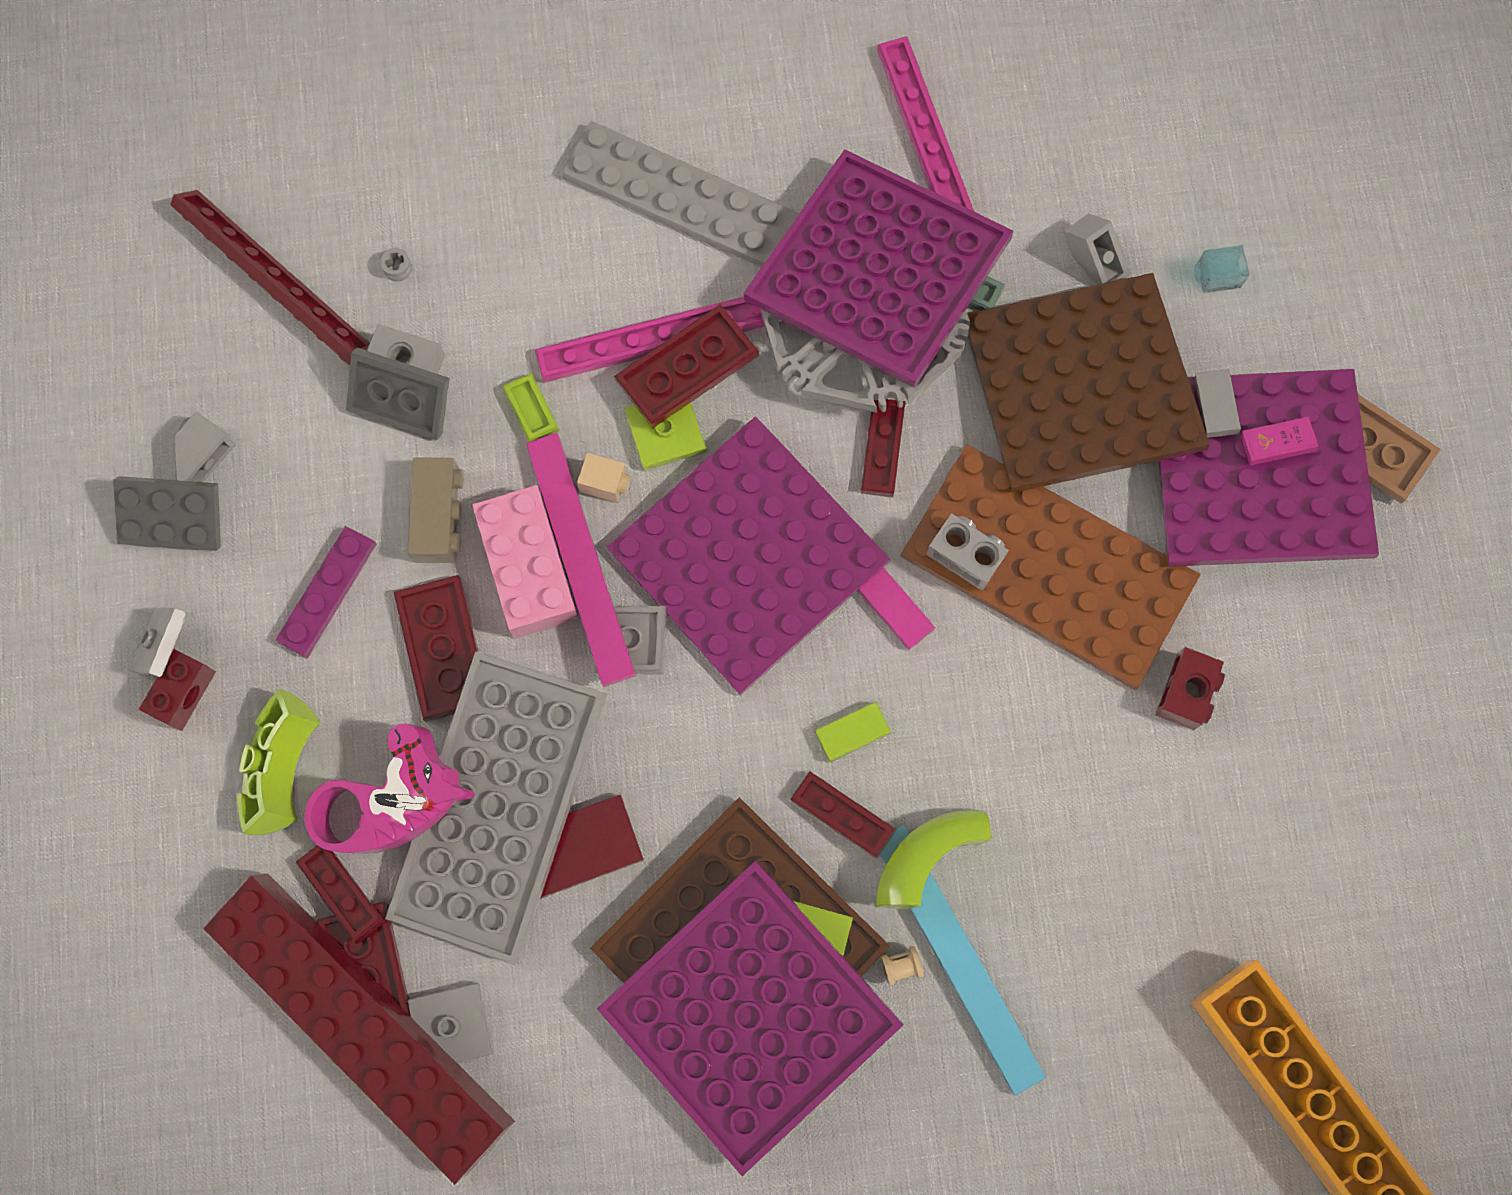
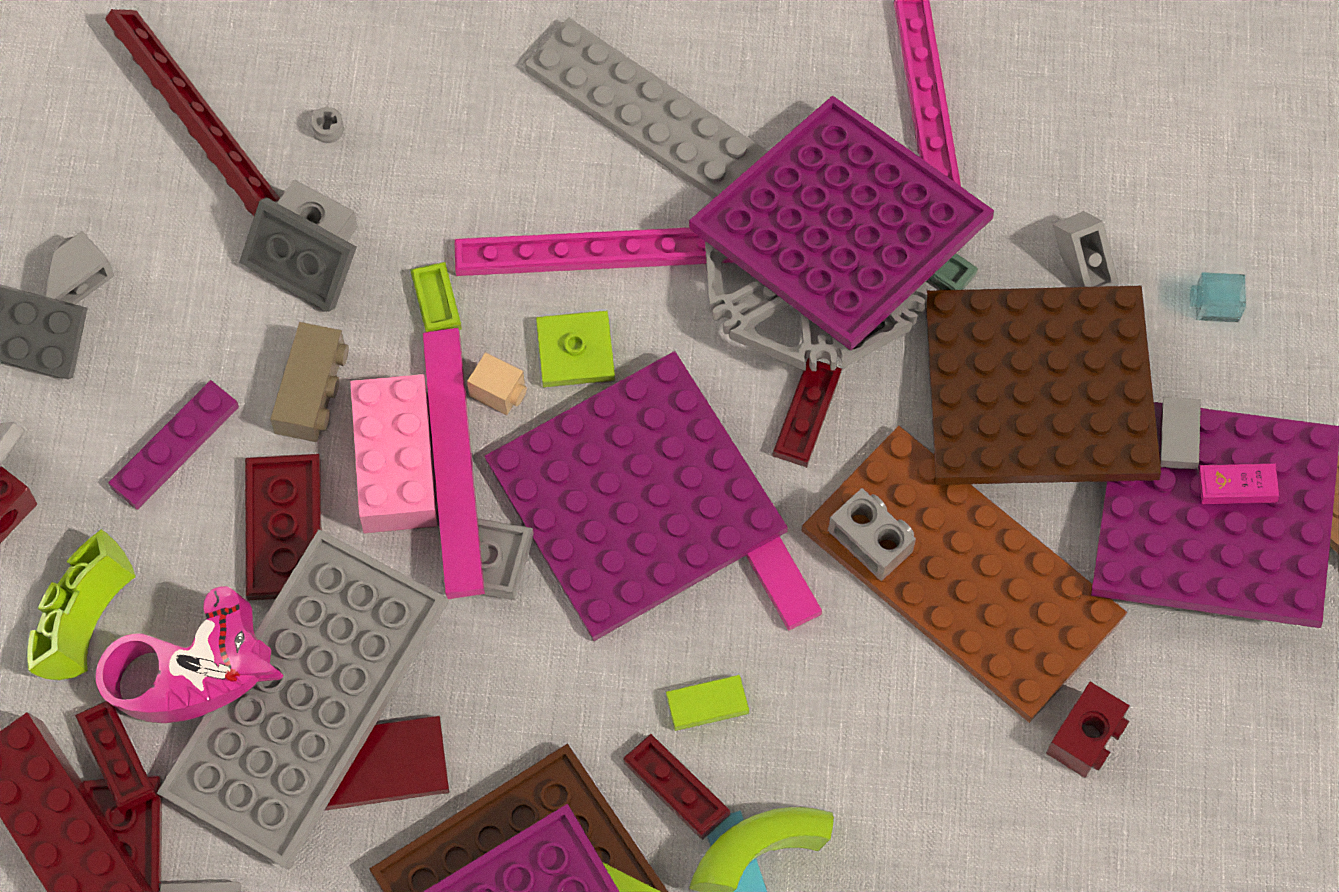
camera: 10 degrees right, 10 degrees down
(686, 366) = (612, 285): dark red tile -> none

